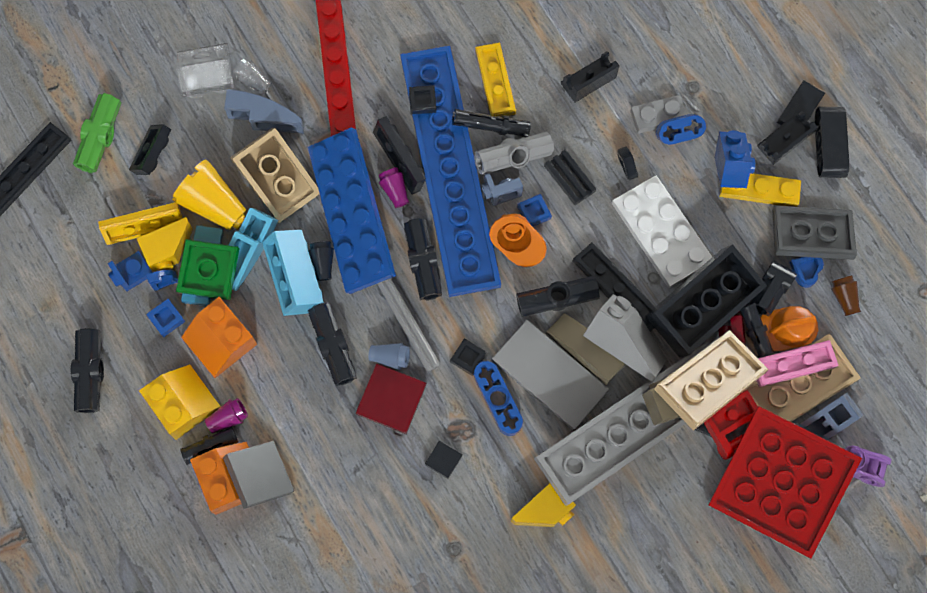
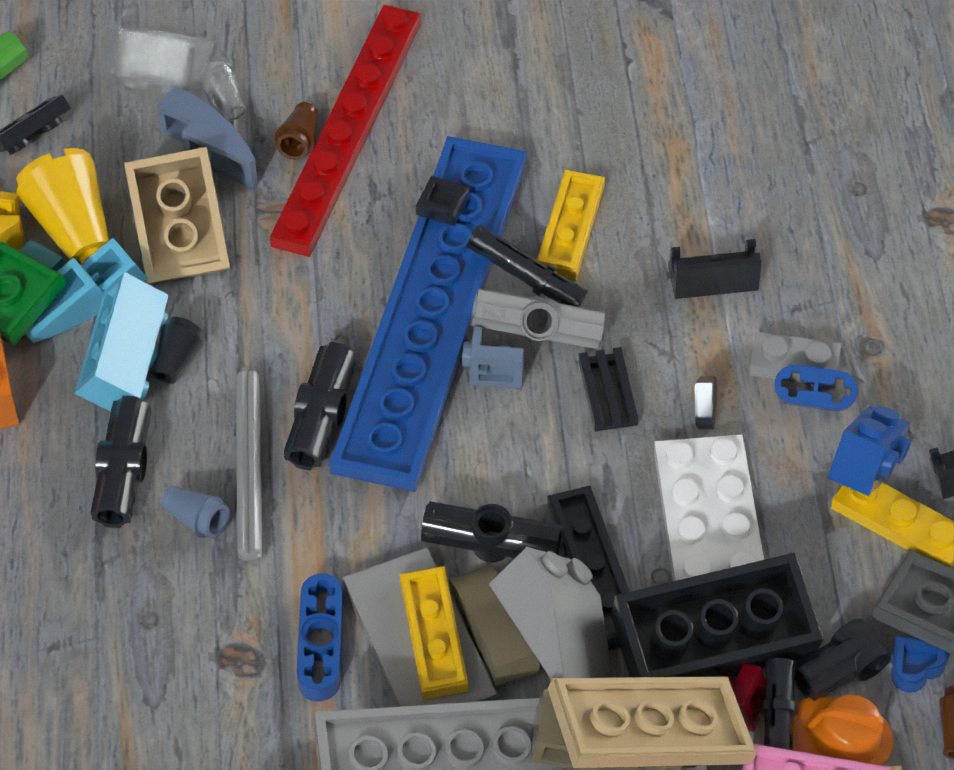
camera: 30 degrees right, 20 degrees down
(311, 87) = (297, 133): none -> reddish brown cone
(351, 211) = (253, 303): blue plate -> none
(391, 398) = (162, 571): dark red tile -> none
(394, 186) = (337, 296): magenta cone -> none
(399, 154) = (369, 261): black plate -> none
(443, 459) = (188, 685): black tile -> none
(468, 356) = (309, 559): black tile -> none
(518, 240) = (474, 432): orange piece -> none
(534, 210) = (527, 412): blue tile -> none
(559, 370) = (434, 633): none -> yellow tile

